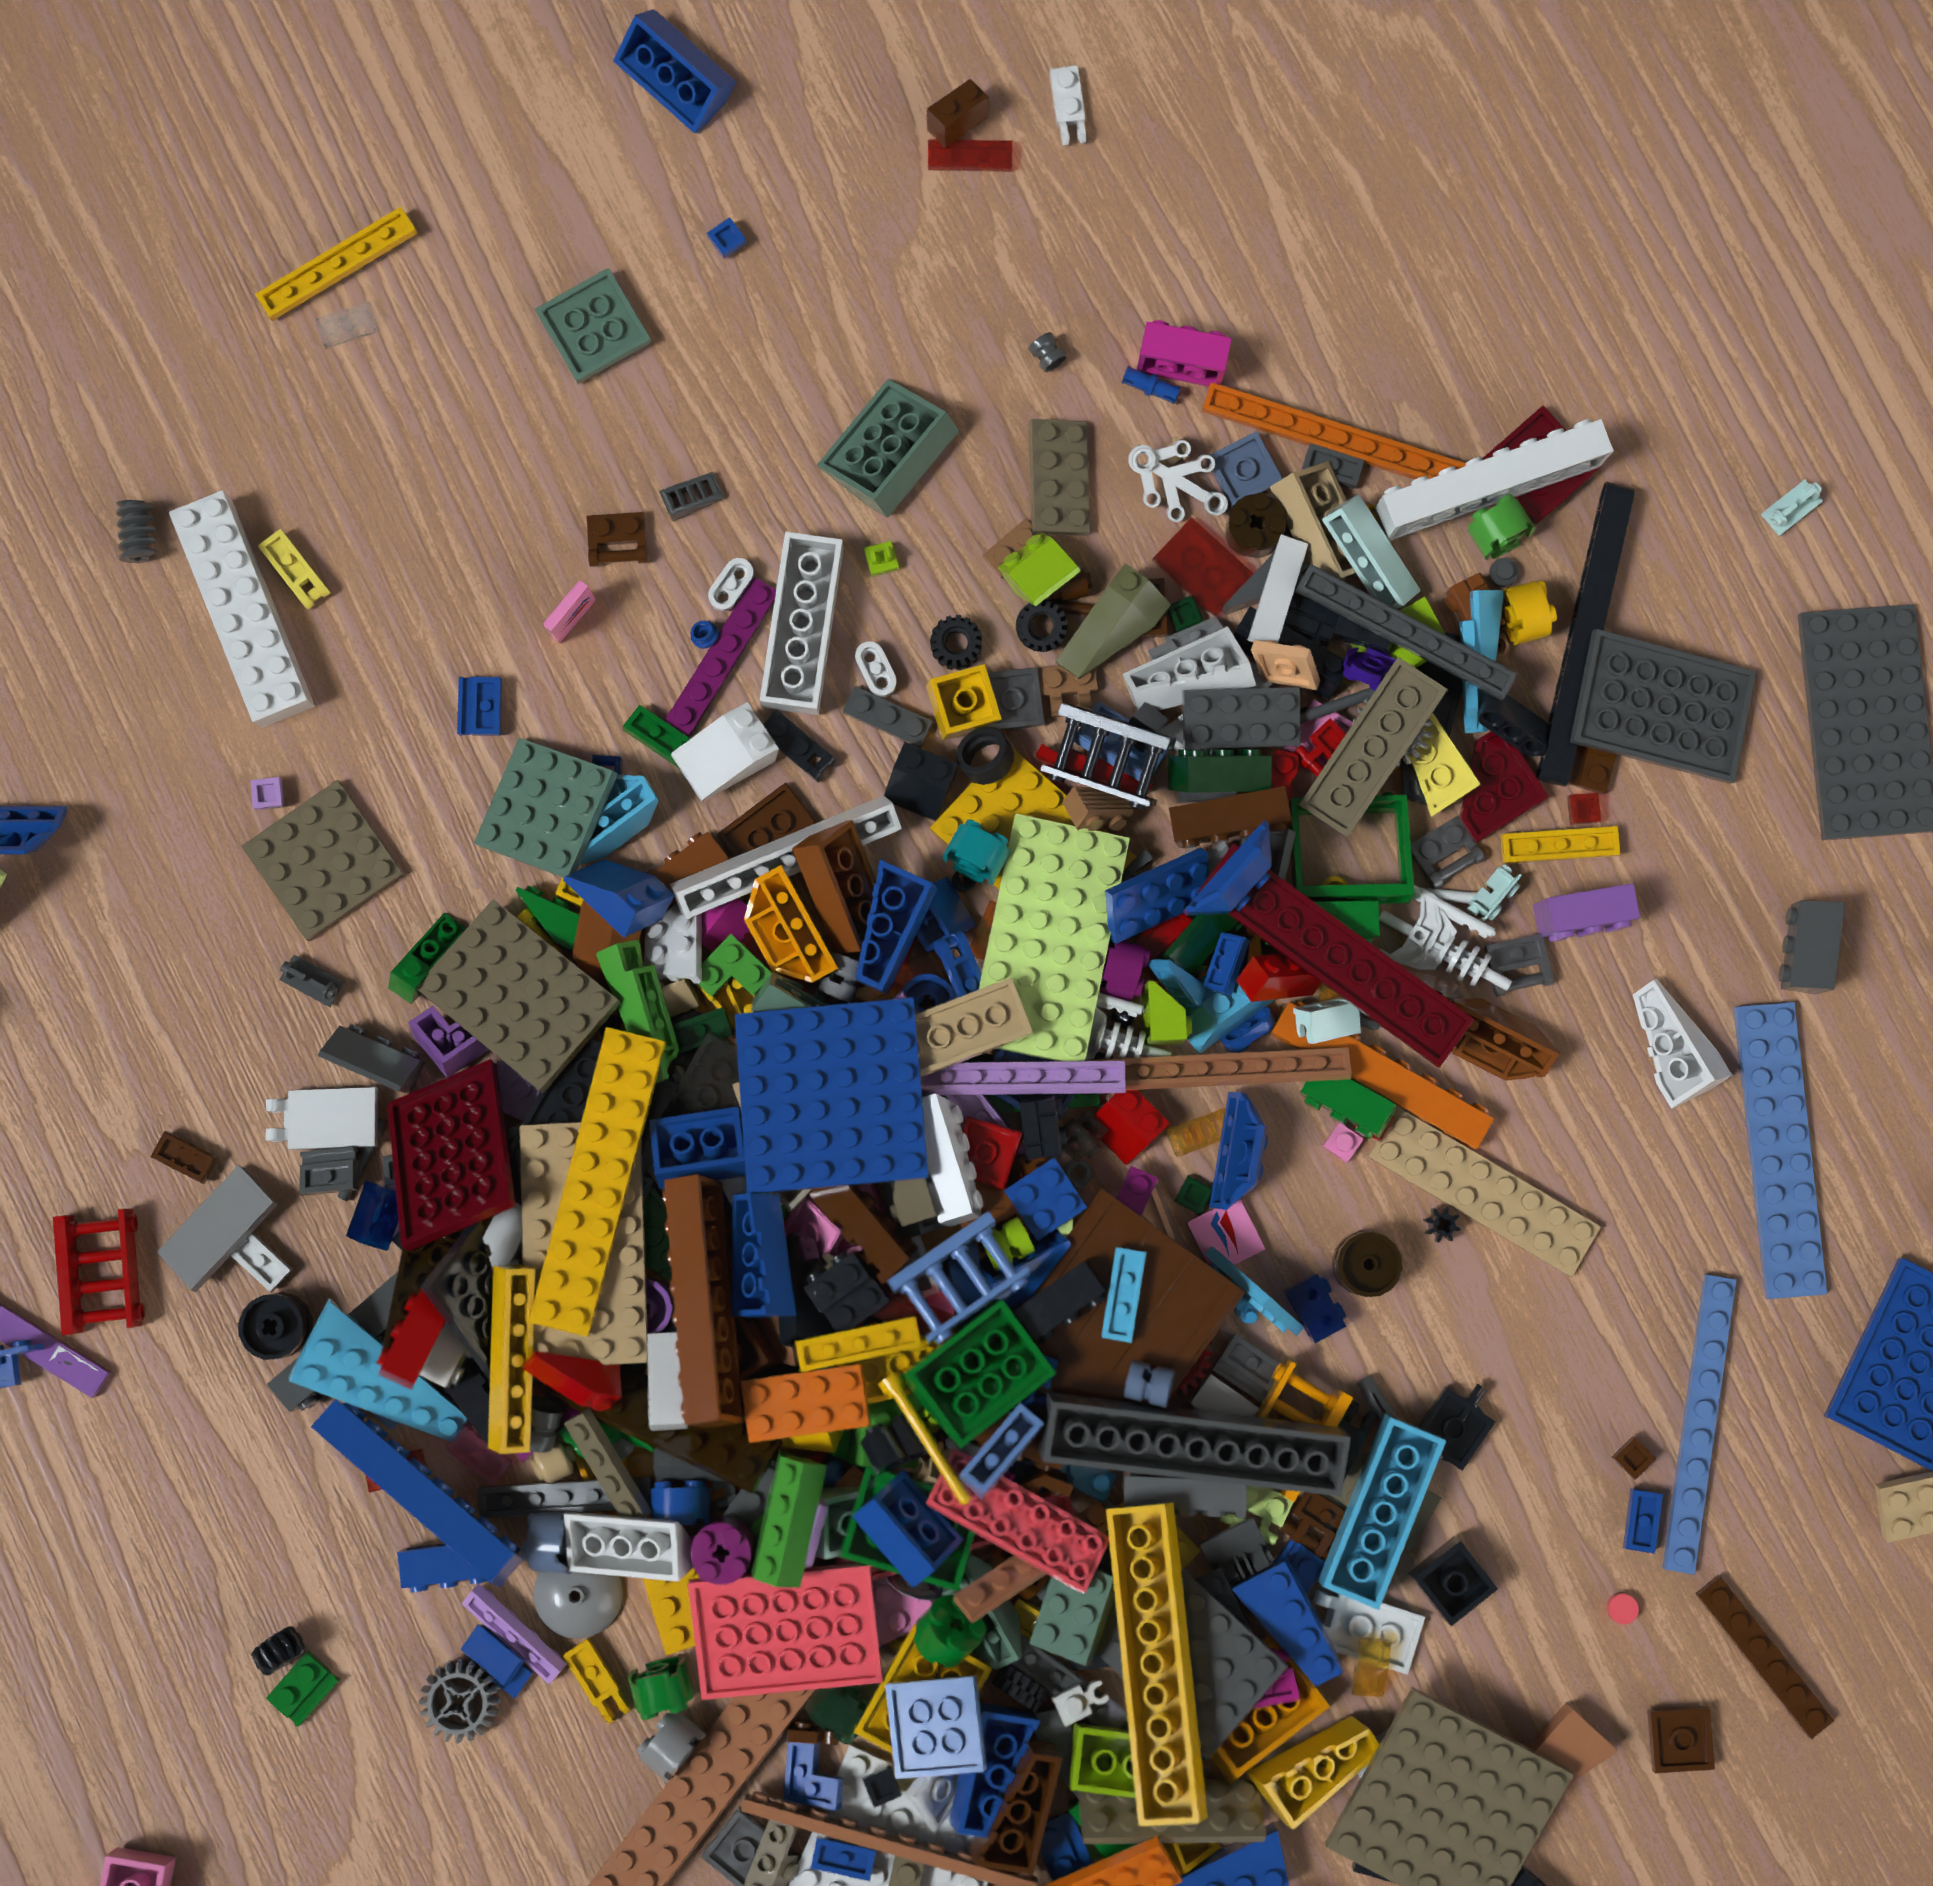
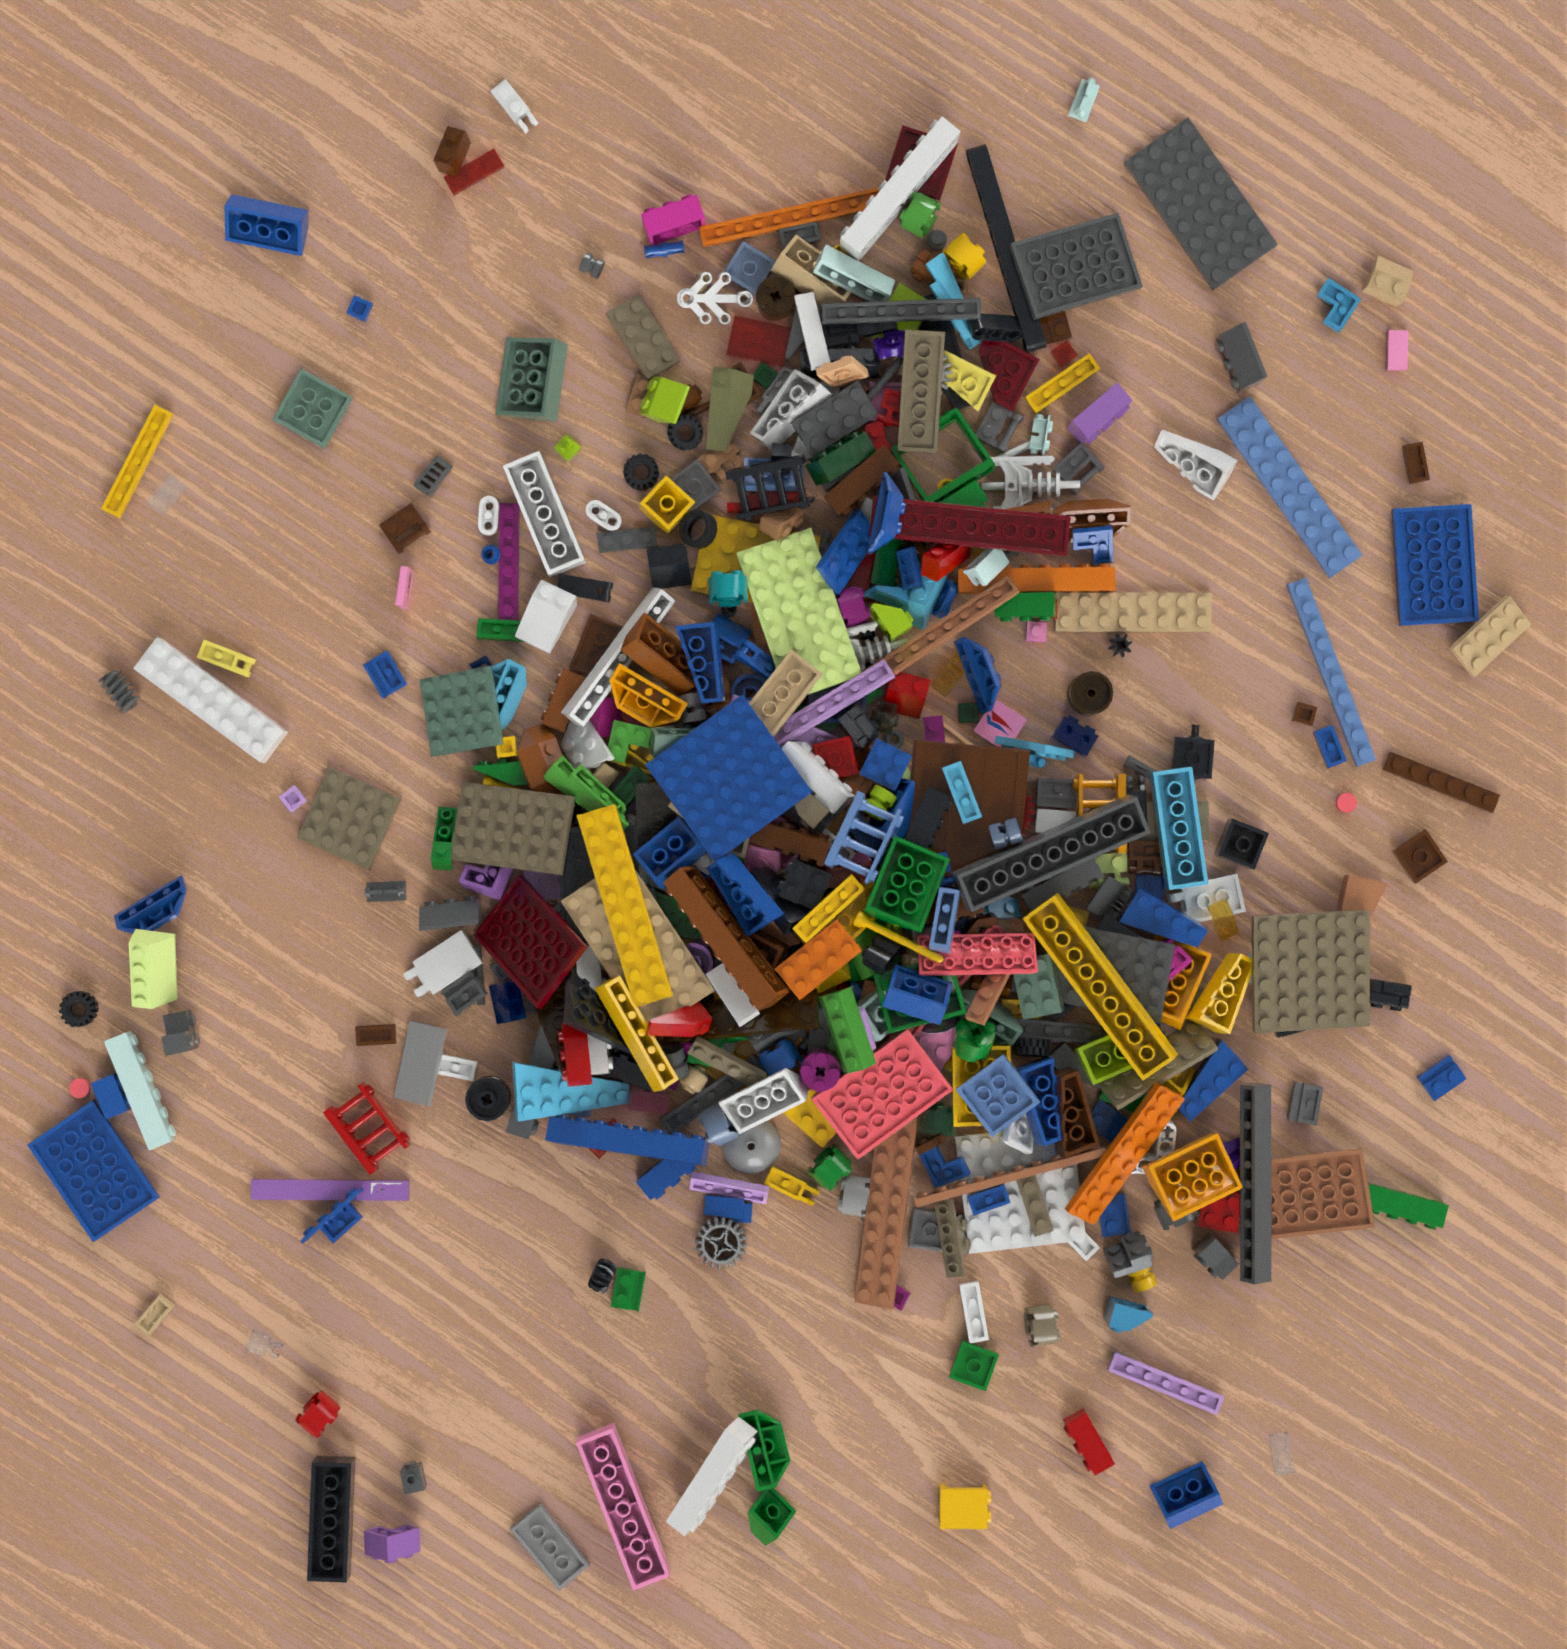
camera: 25 degrees left, 5 degrees up
(621, 895) = (537, 735): blue slope -> none
(882, 1786) = (987, 1147): black plate -> none
(1074, 1703) = (1068, 1037): white plate -> none
(1492, 1069) = (1098, 539): none -> plate

